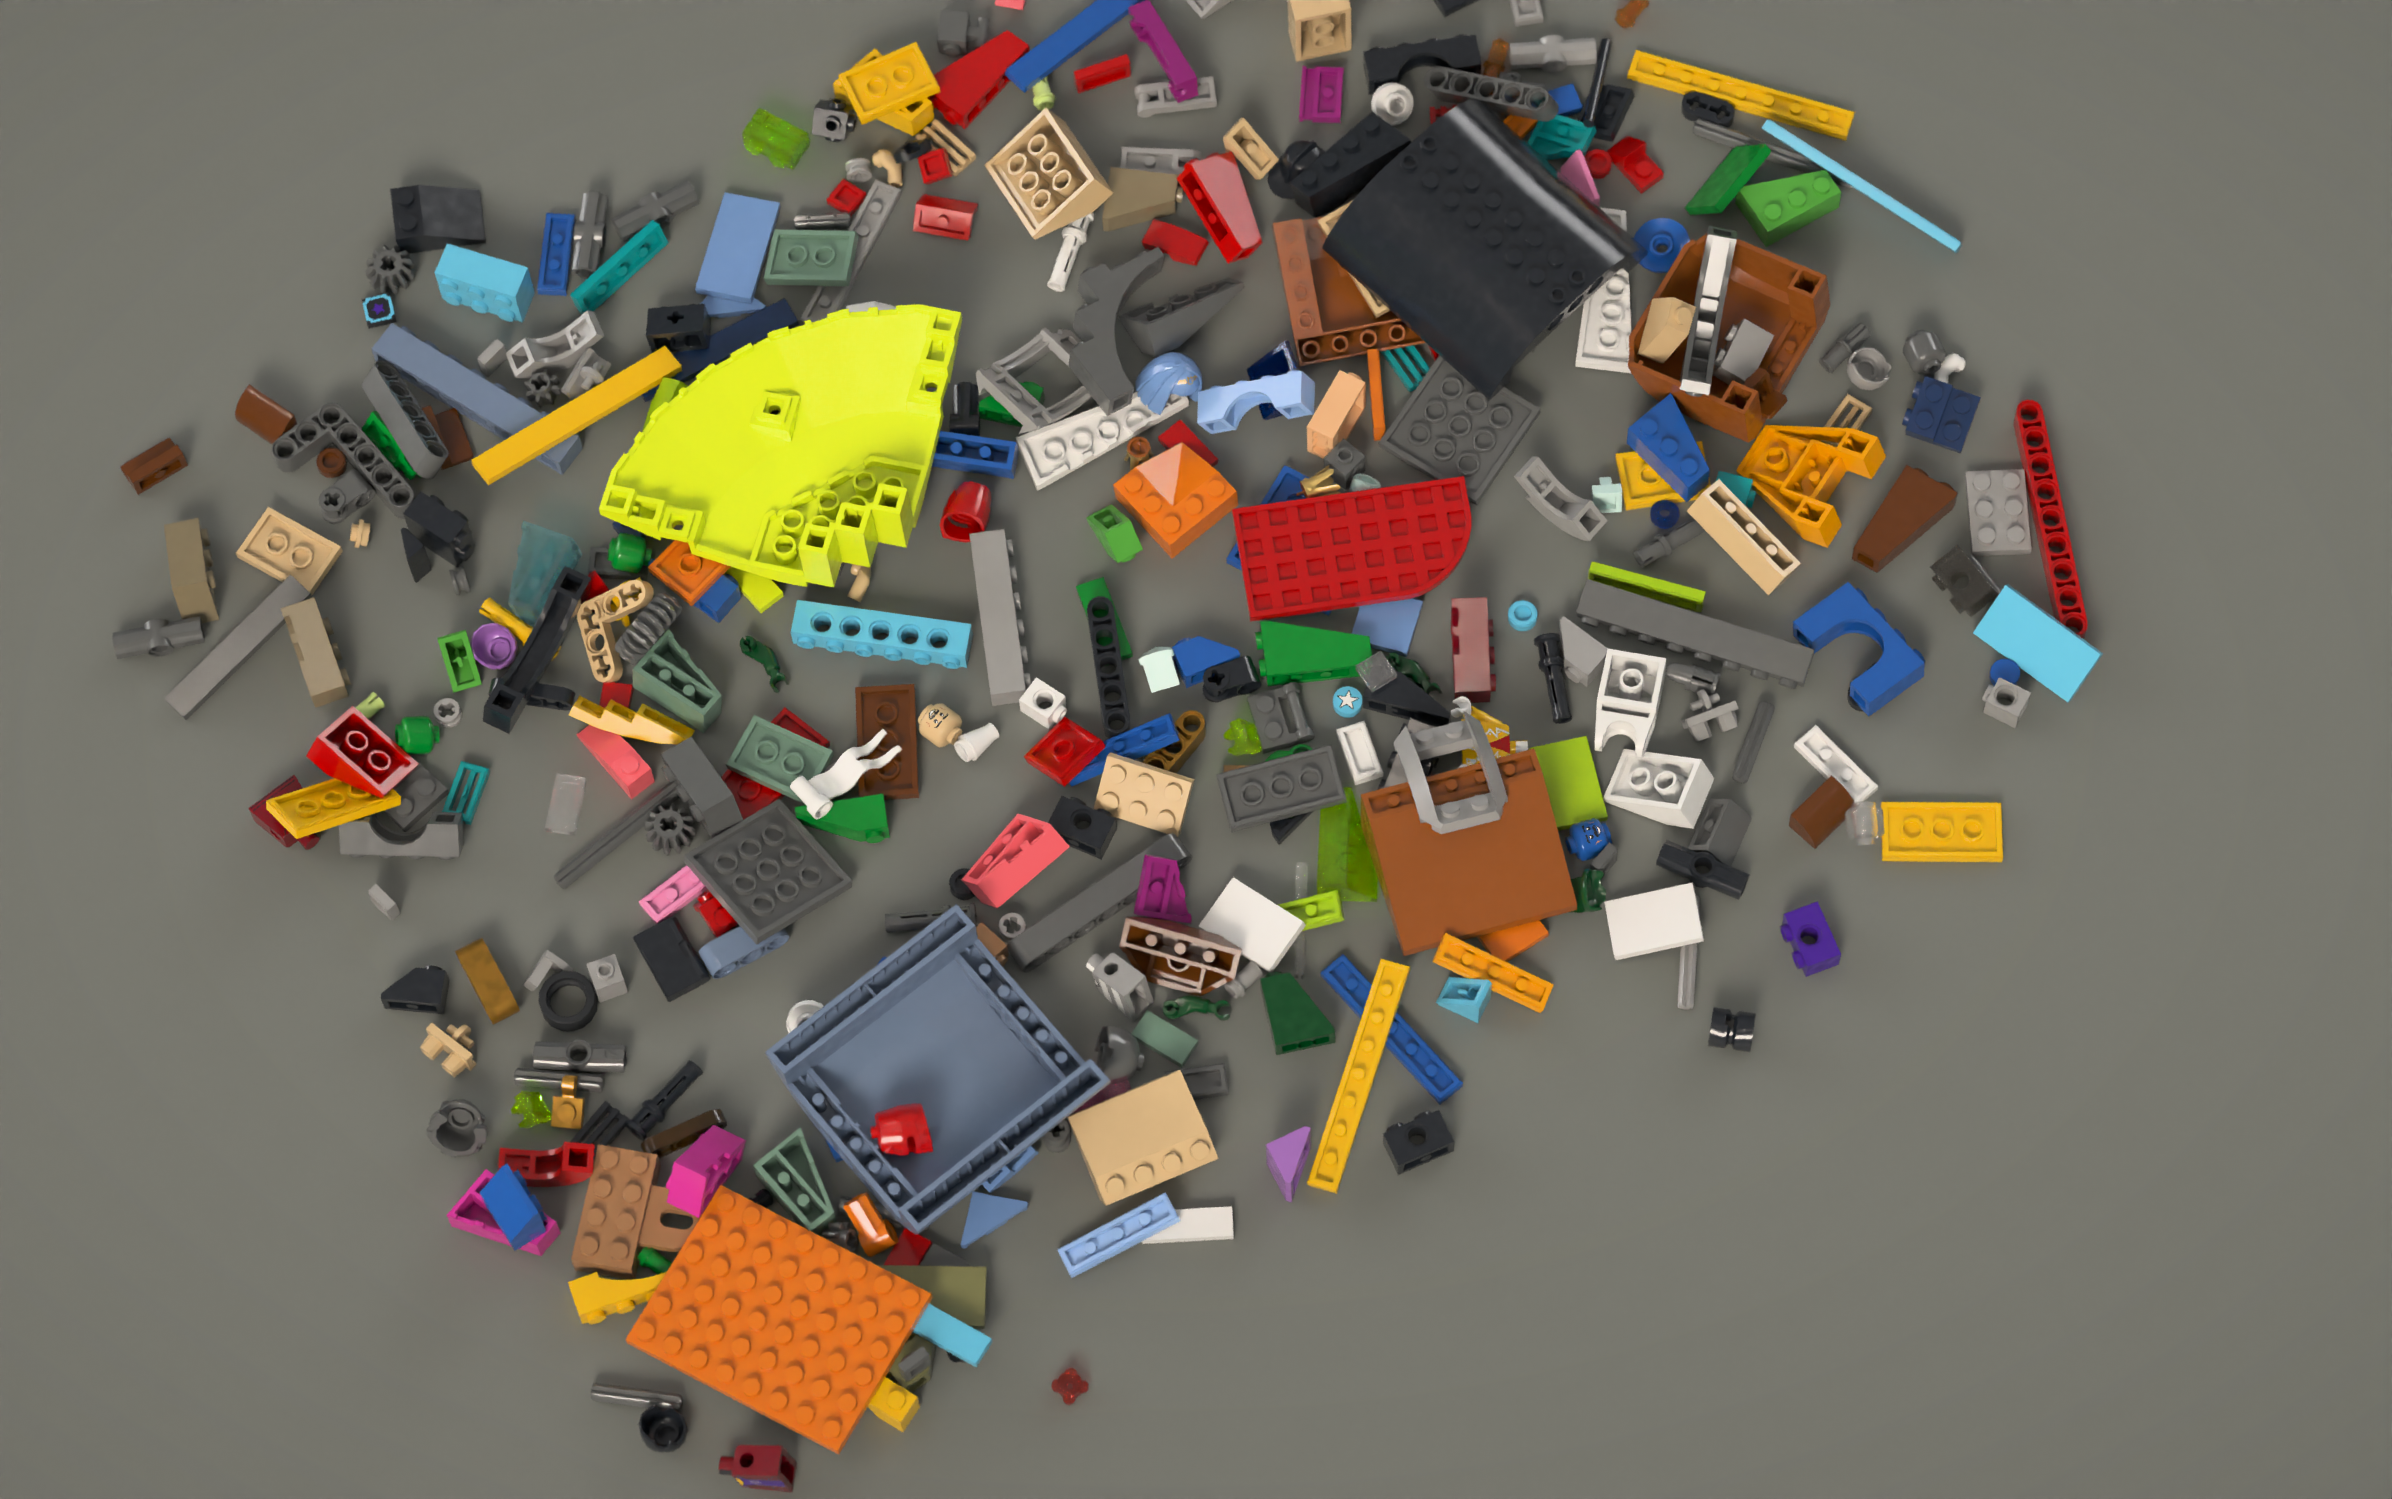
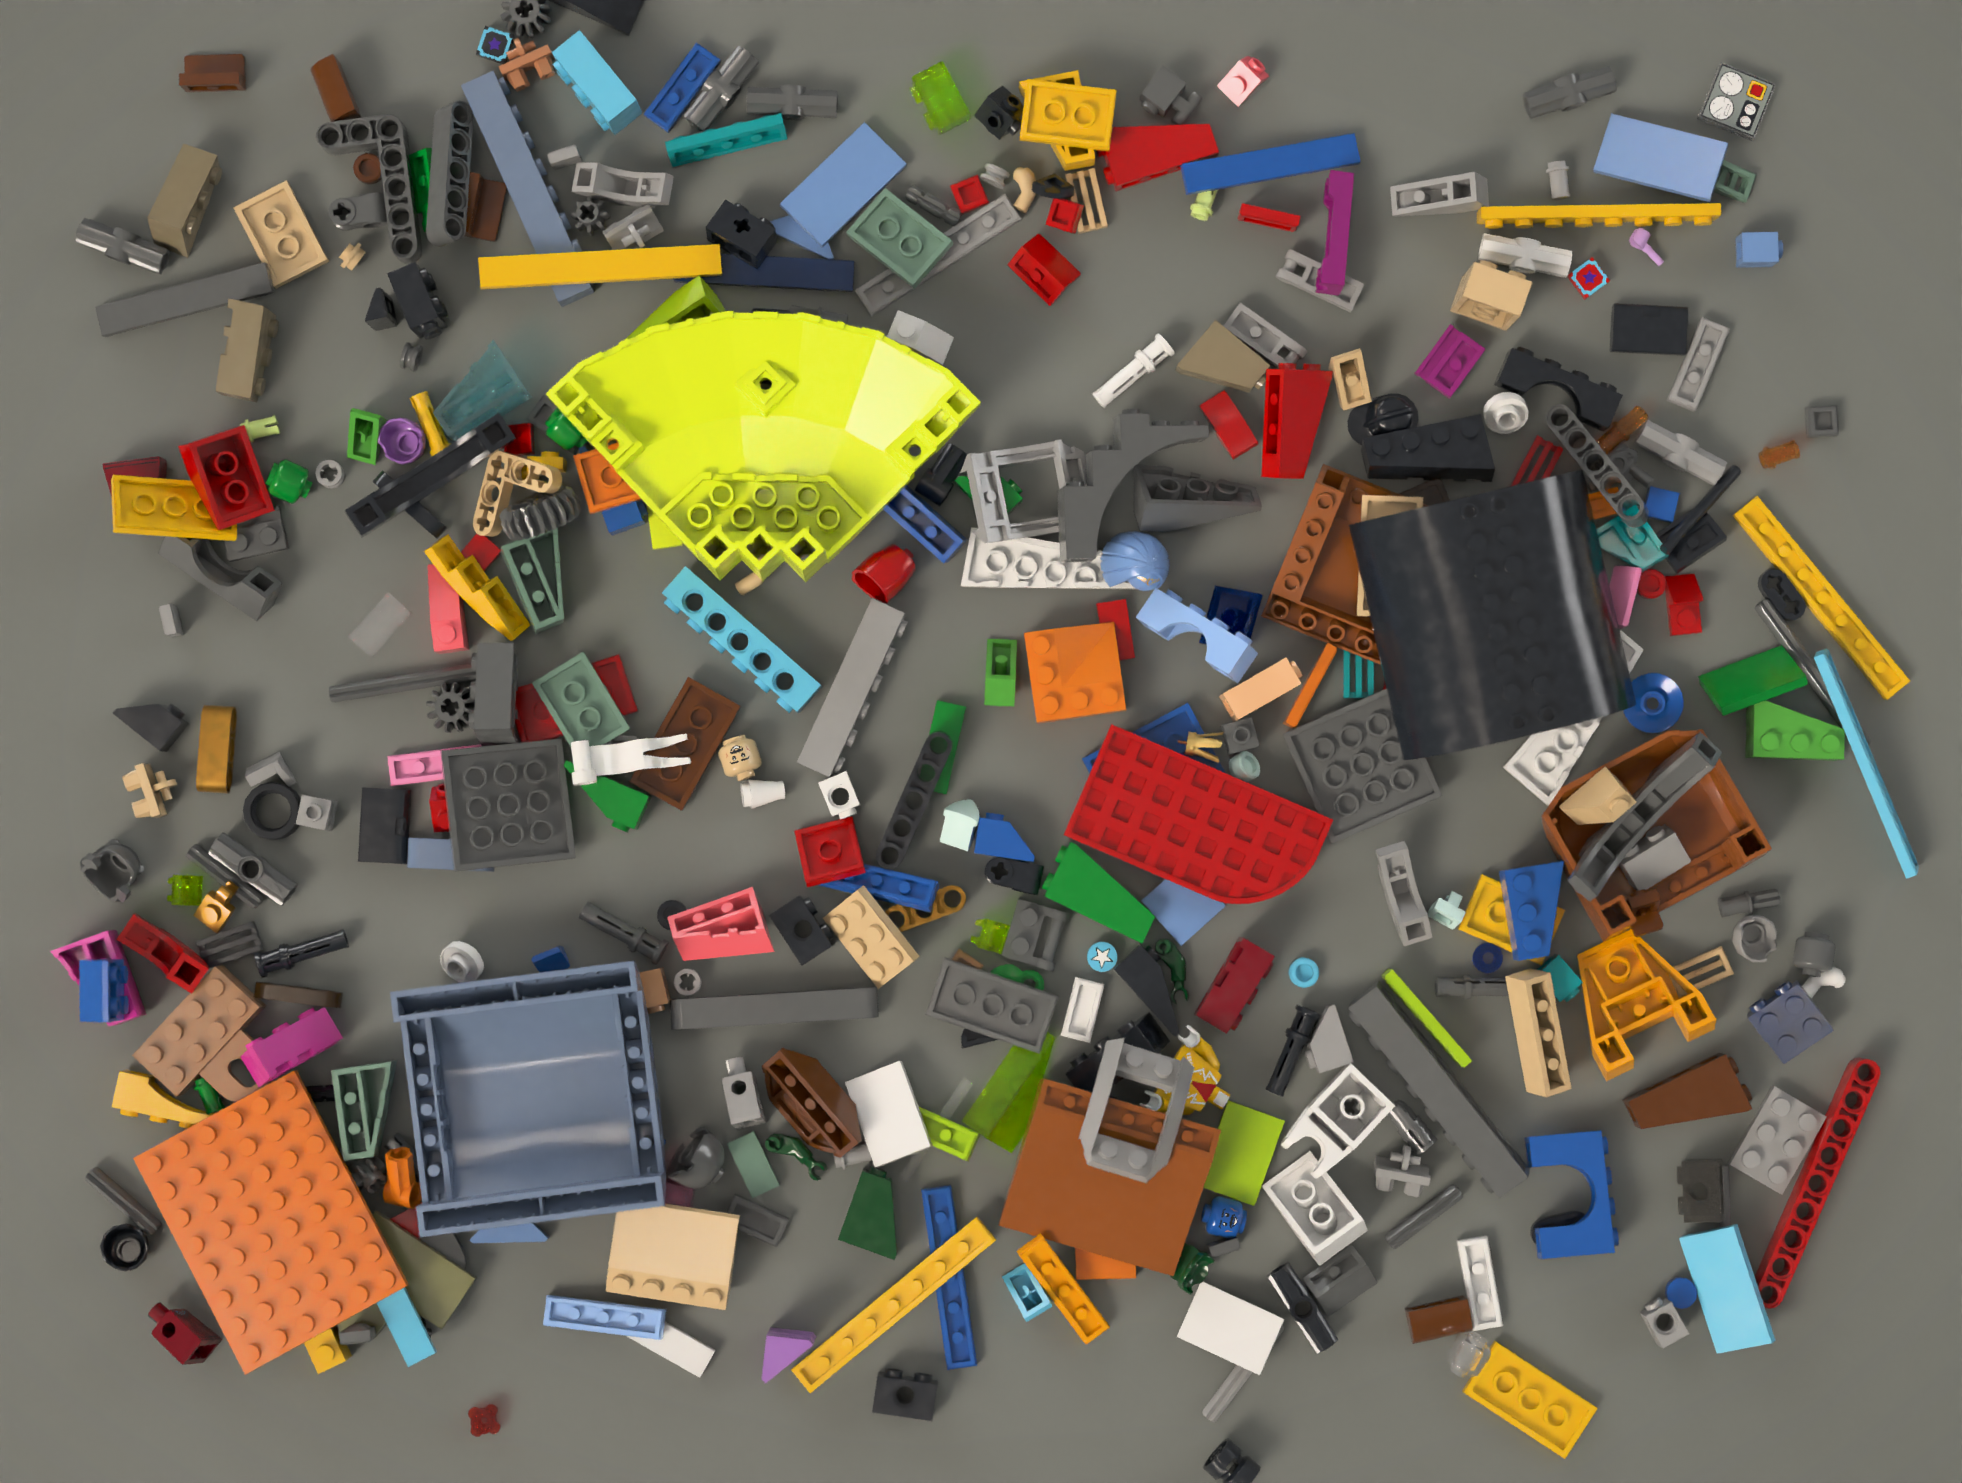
camera: 30 degrees right, 20 degrees up
(412, 303) = (515, 70): none -> nougat hips
(475, 769) = (282, 576): teal tile -> none
(765, 656) = (632, 596): dark green arm -> none
(902, 1130) = (474, 1119): red helmet -> none
(1048, 176) = (1155, 293): tan slope -> none
(1138, 450) = (1068, 612): dark orange piece -> none
(1160, 891) = (828, 1038): magenta wing -> none
(1376, 671) = (1139, 955): clear tile -> none
(1810, 922) = (1356, 1446): dark purple brick -> none

